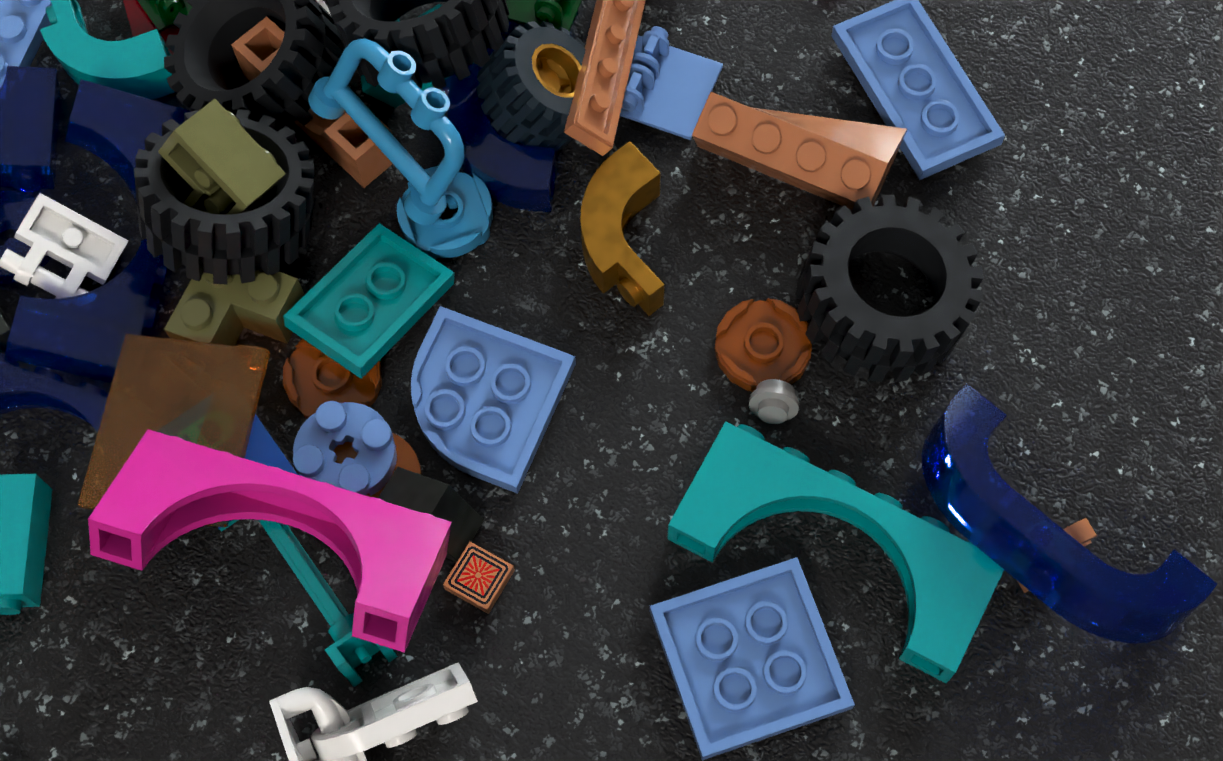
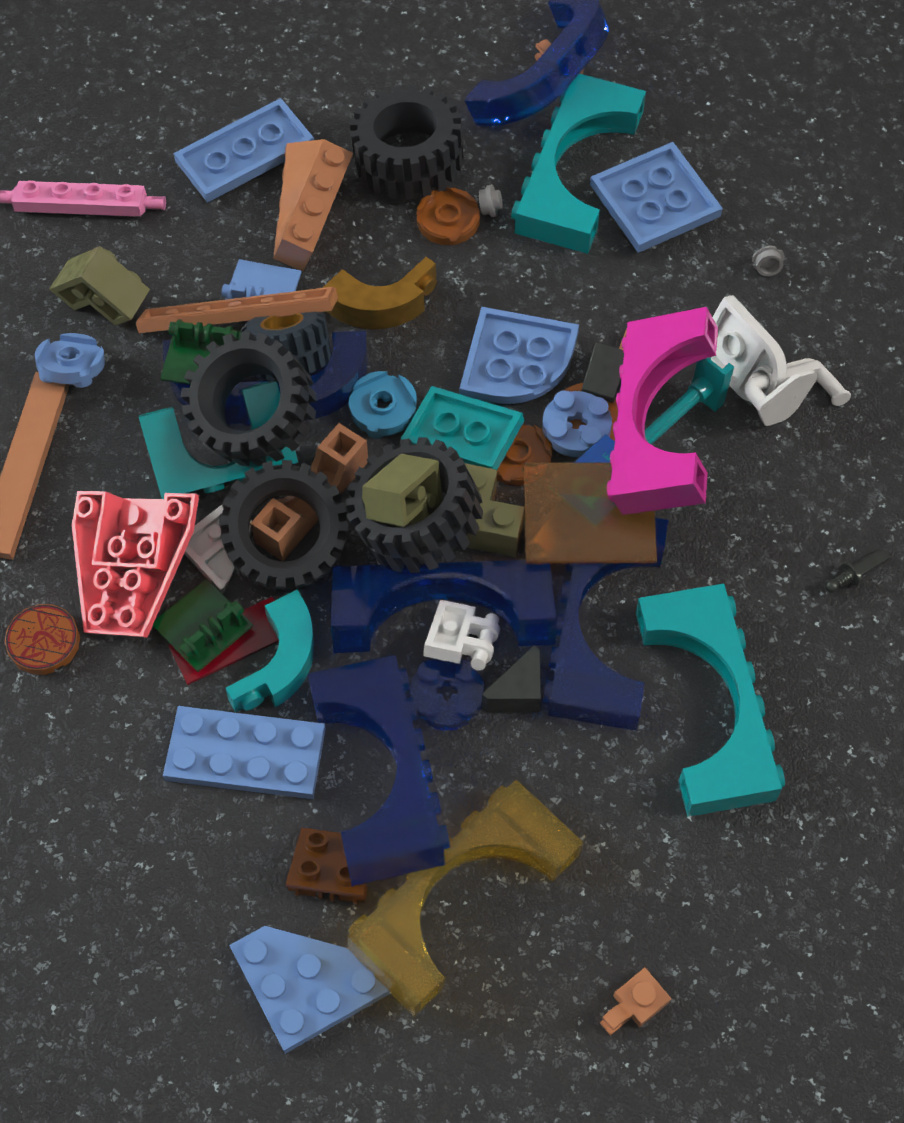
camera: 100 degrees left, 5 degrees down
(333, 97) = (325, 377): dark azure bar -> none

